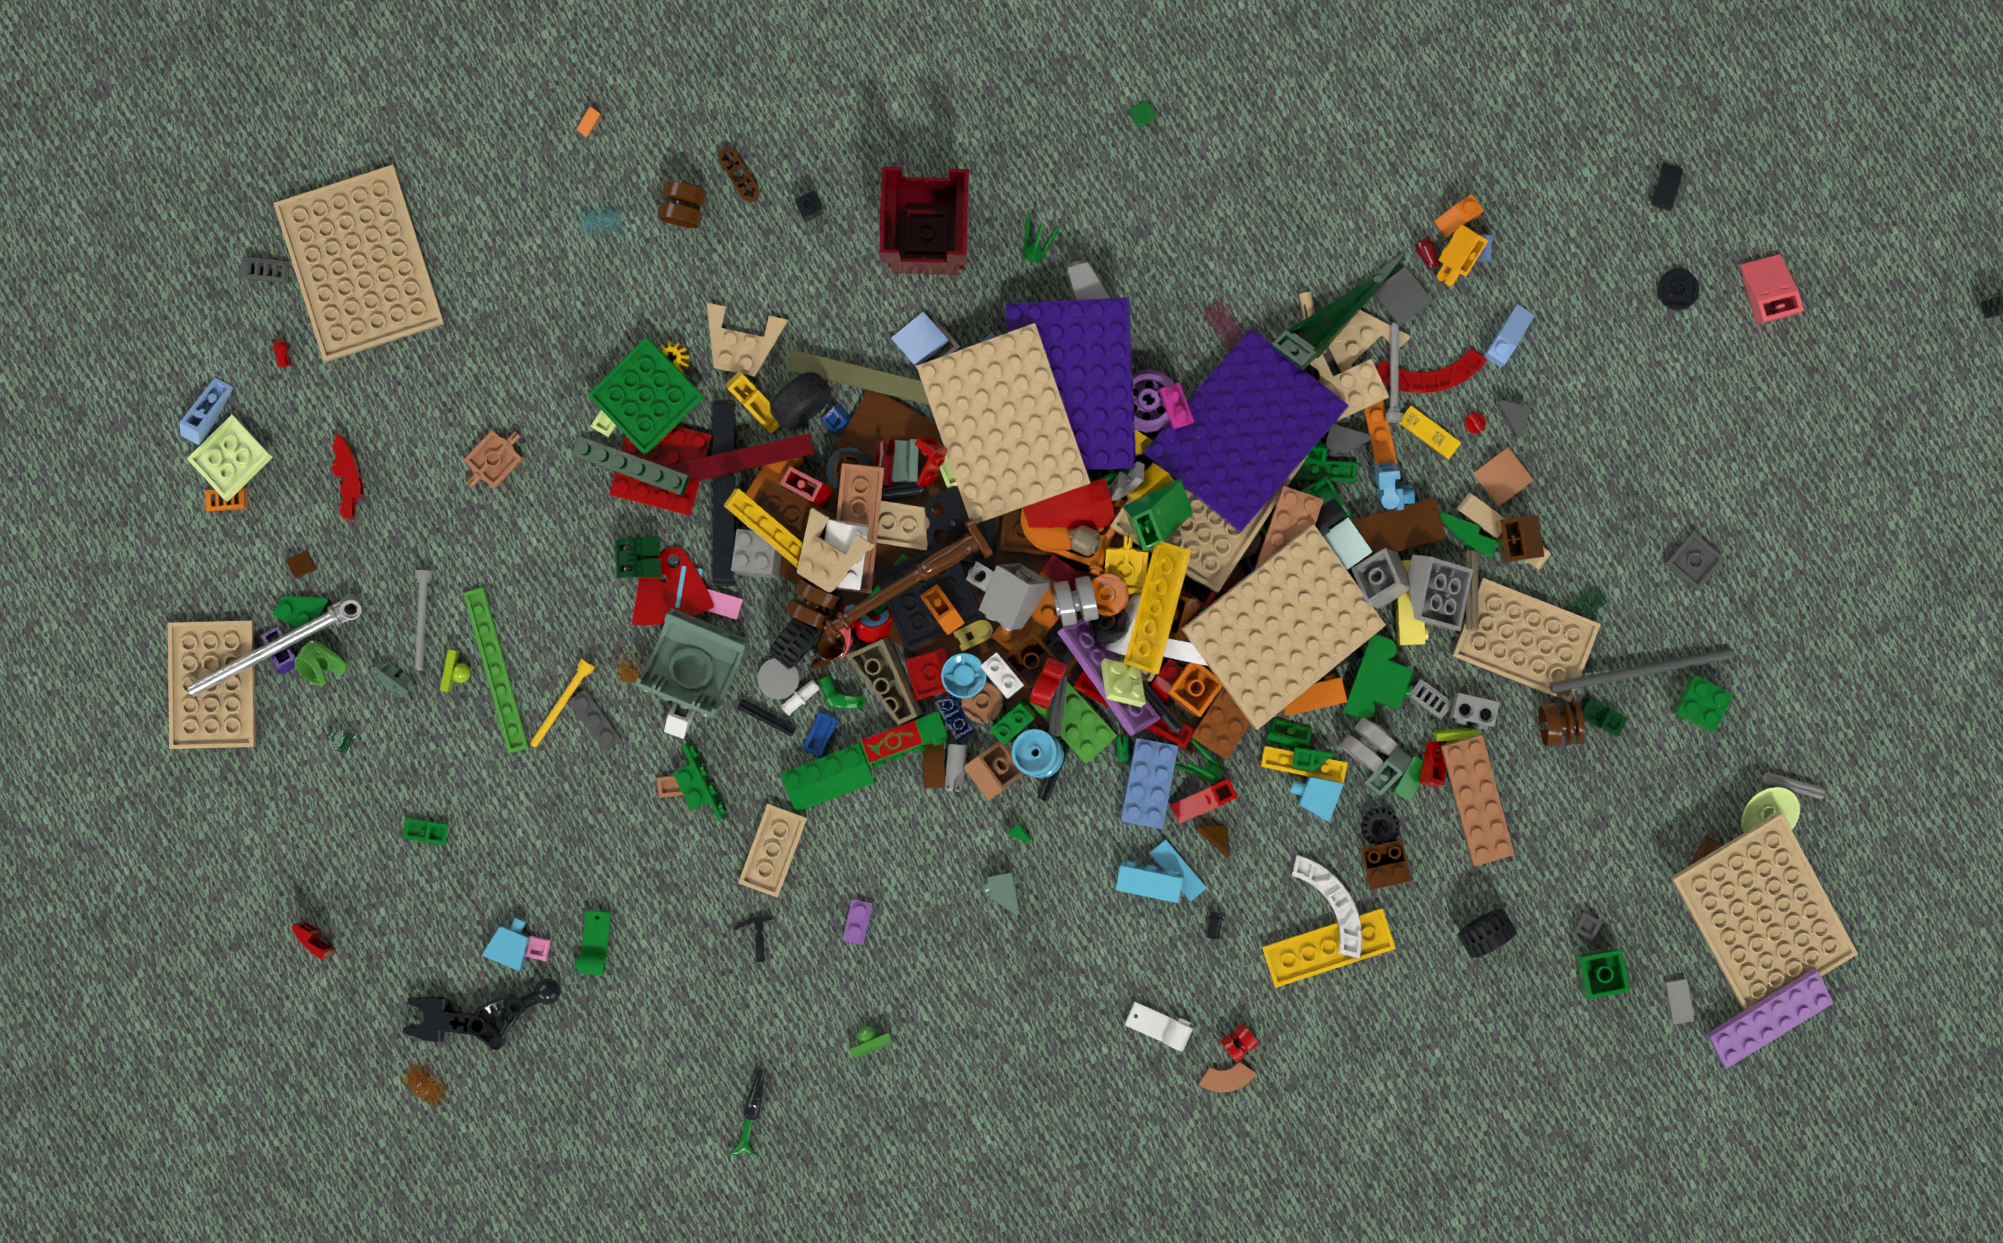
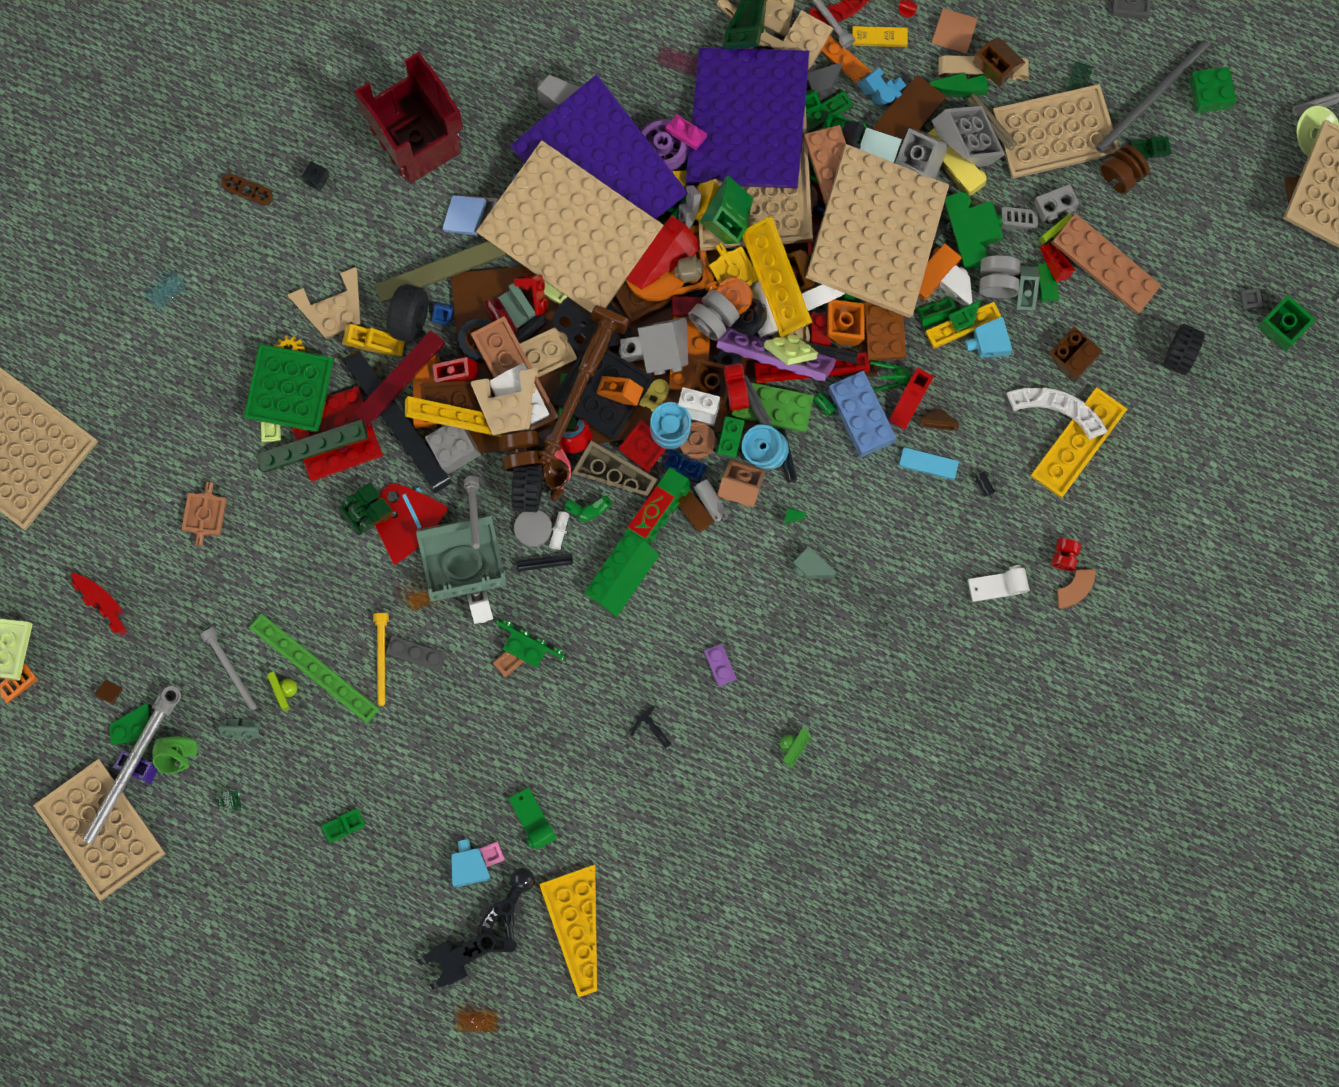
camera: 35 degrees left, 10 degrees down
(308, 936) = (309, 965): red slope -> none
(572, 1050) = (573, 915): none -> yellow wing
(589, 121) = (108, 225): orange piece -> none
(683, 198) = (220, 231): reddish brown wheel -> none
(725, 604) = (454, 501): bright pink tile -> none
(750, 601) = (471, 485): none -> light grey piece
(751, 1113) = (742, 863): black piece -> none
(772, 850) = (619, 656): tan plate -> none
(820, 734) = (593, 547): blue tile -> none
(1034, 251) = (504, 100): green plant -> none
(1150, 881) = (914, 483): medium azure brick -> none
(1326, 724) = (958, 285): none -> white slope
(1389, 817) = (1050, 320): black tyre -> none

